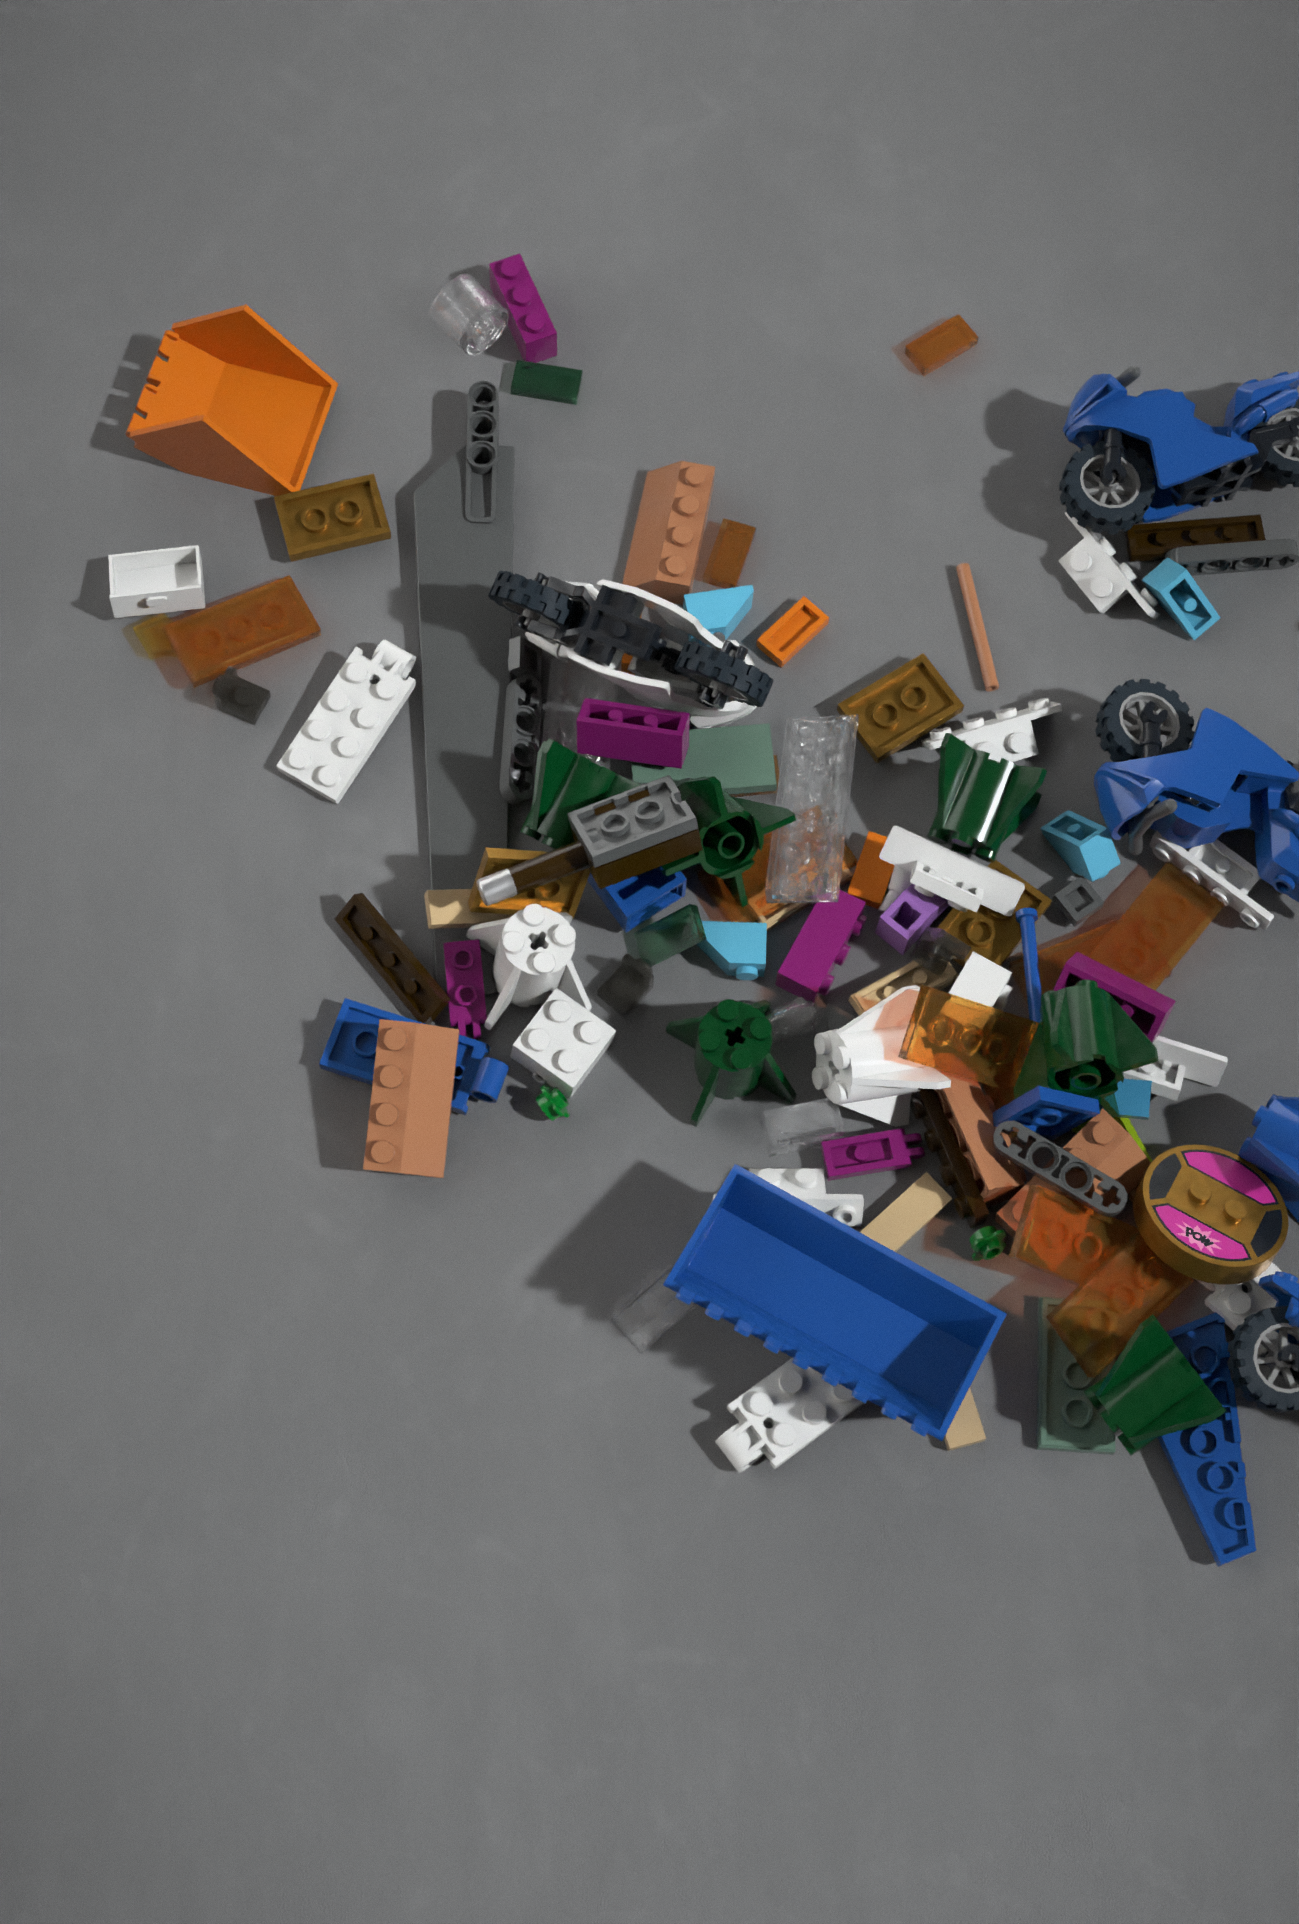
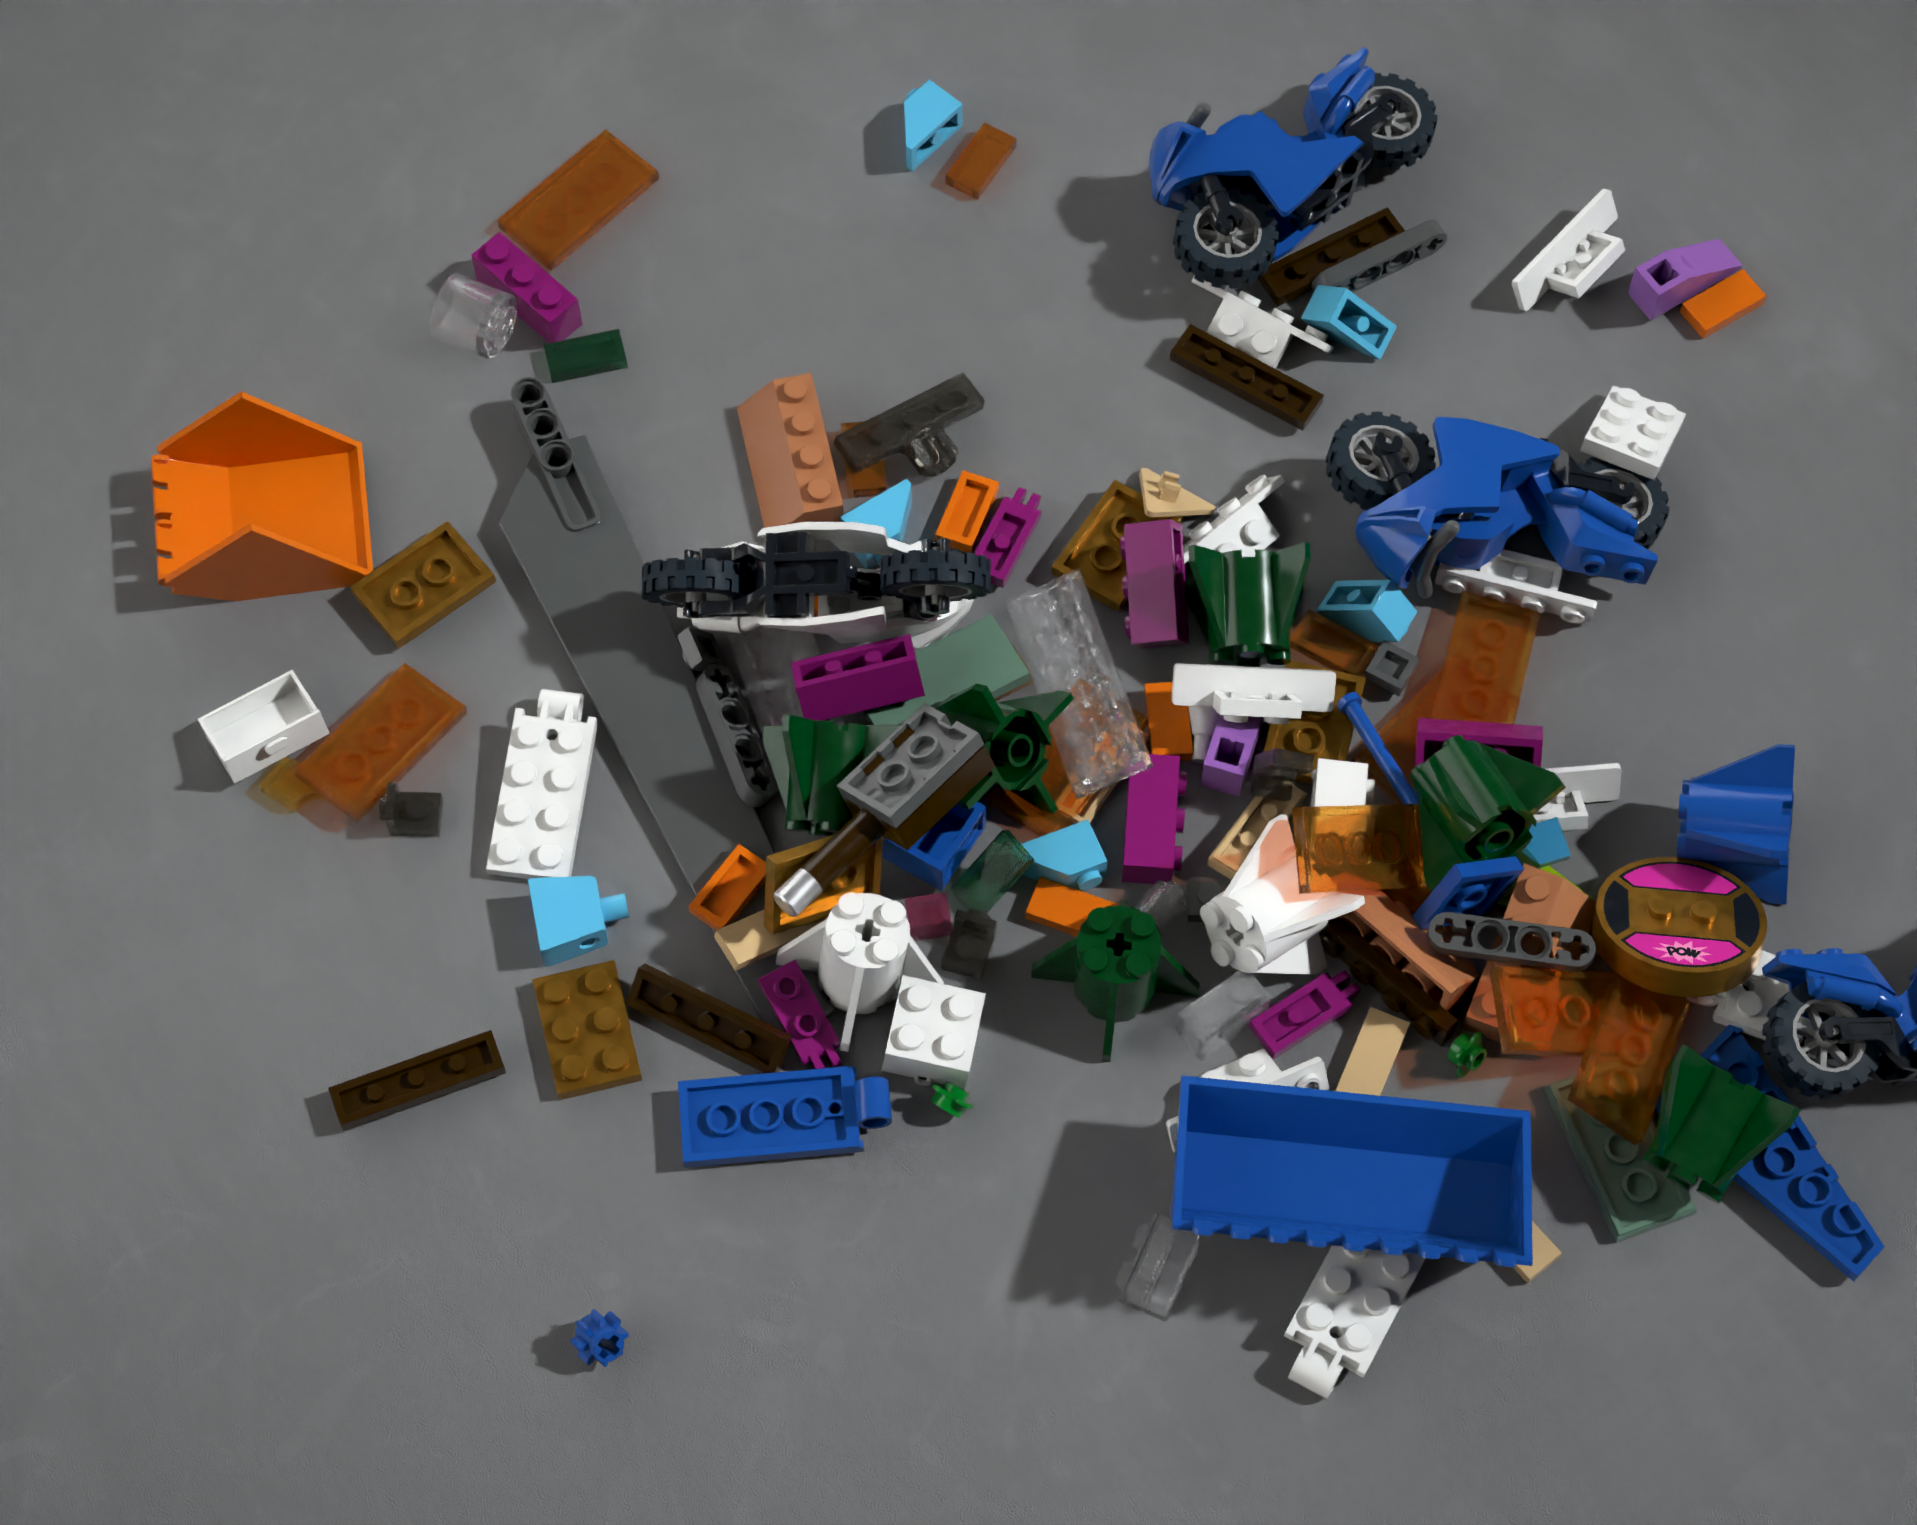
camera: 20 degrees left, 5 degrees down
(146, 911) = (416, 1080): none -> dark brown plate
(190, 1174) = (599, 1338): none -> blue gear
(295, 926) = (587, 1030): none -> pearl gold plate
(324, 831) = (572, 916): none -> medium azure torso
(411, 1099) = (803, 1156): nougat slope -> none
(454, 861) = (729, 889): none -> orange tile
(600, 251) = (578, 199): none -> clear orange tile
(606, 948) = (929, 916): none -> clear pink tile
(715, 983) = (1062, 906): none -> orange tile
(779, 546) = (914, 429): none -> clear smoke plate
(813, 665) = (1009, 534): none -> magenta hinge
(911, 296) = (929, 121): none -> medium azure slope
(912, 752) = (1155, 584): none -> magenta brick
(960, 686) = (1166, 498): none -> tan piece
(977, 627) = (1155, 432): nougat piece -> none
(1039, 861) = (1332, 644): none -> clear orange tile
(1074, 611) = (1246, 377): none -> dark brown plate

